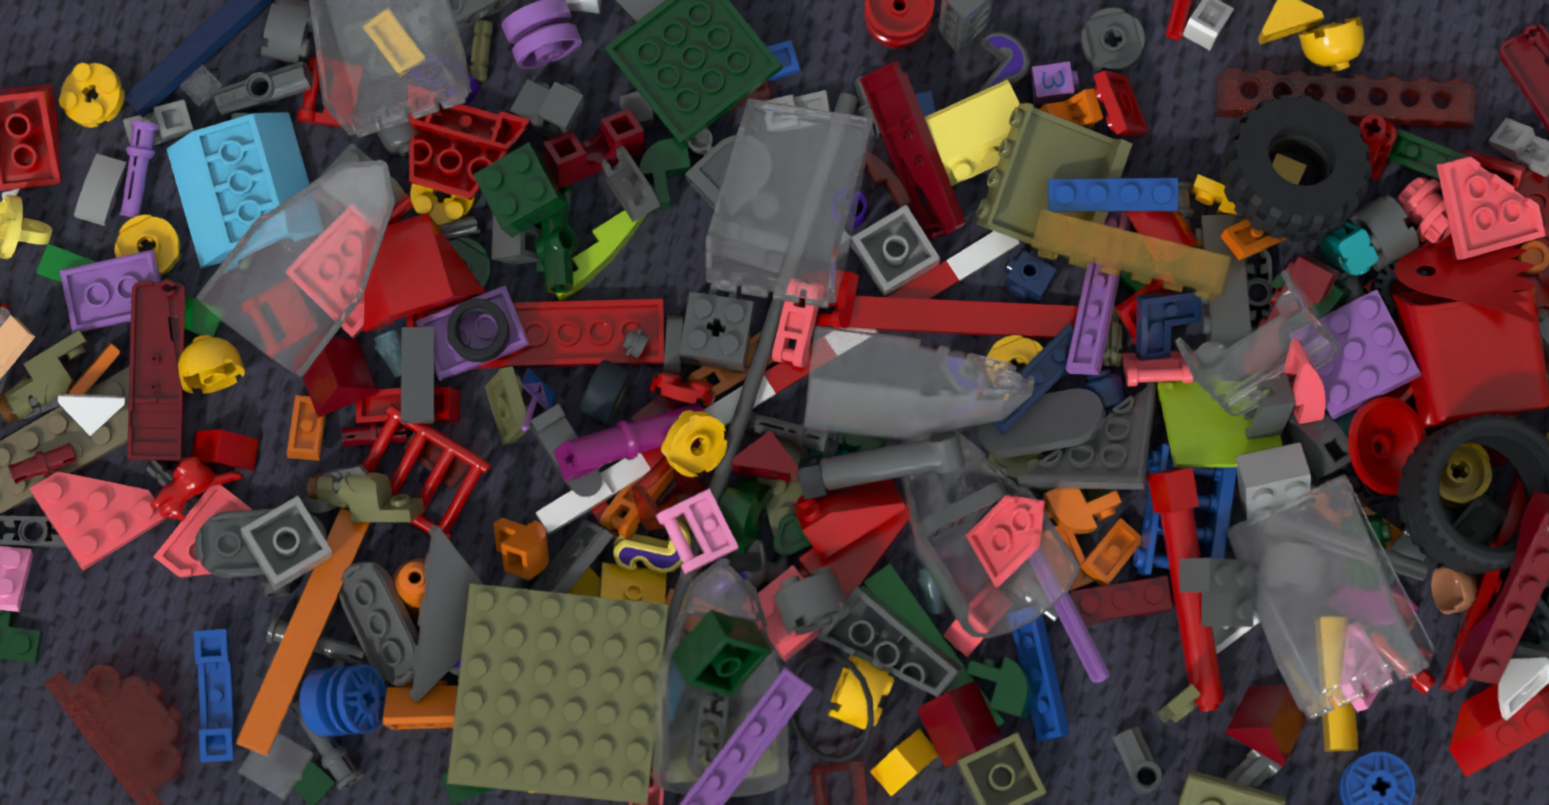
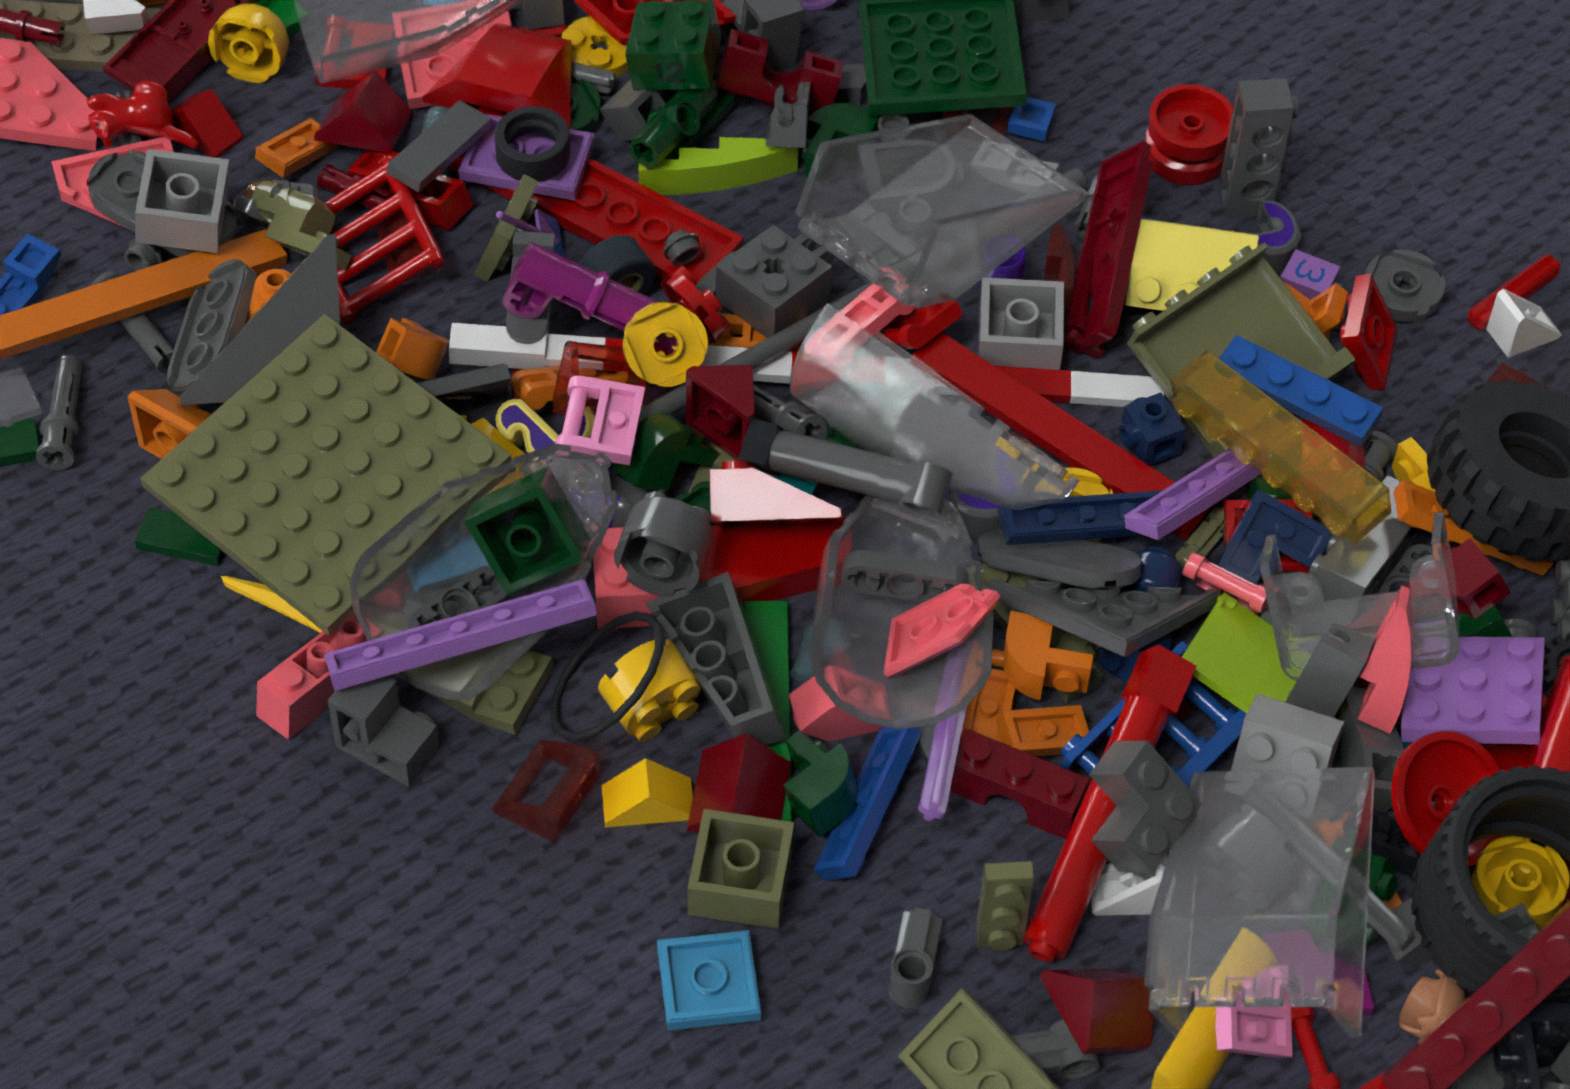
camera: 30 degrees right, 25 degrees down
(343, 700) = (106, 362): blue wheel -> none
(1349, 249) = (1537, 589): teal brick -> none

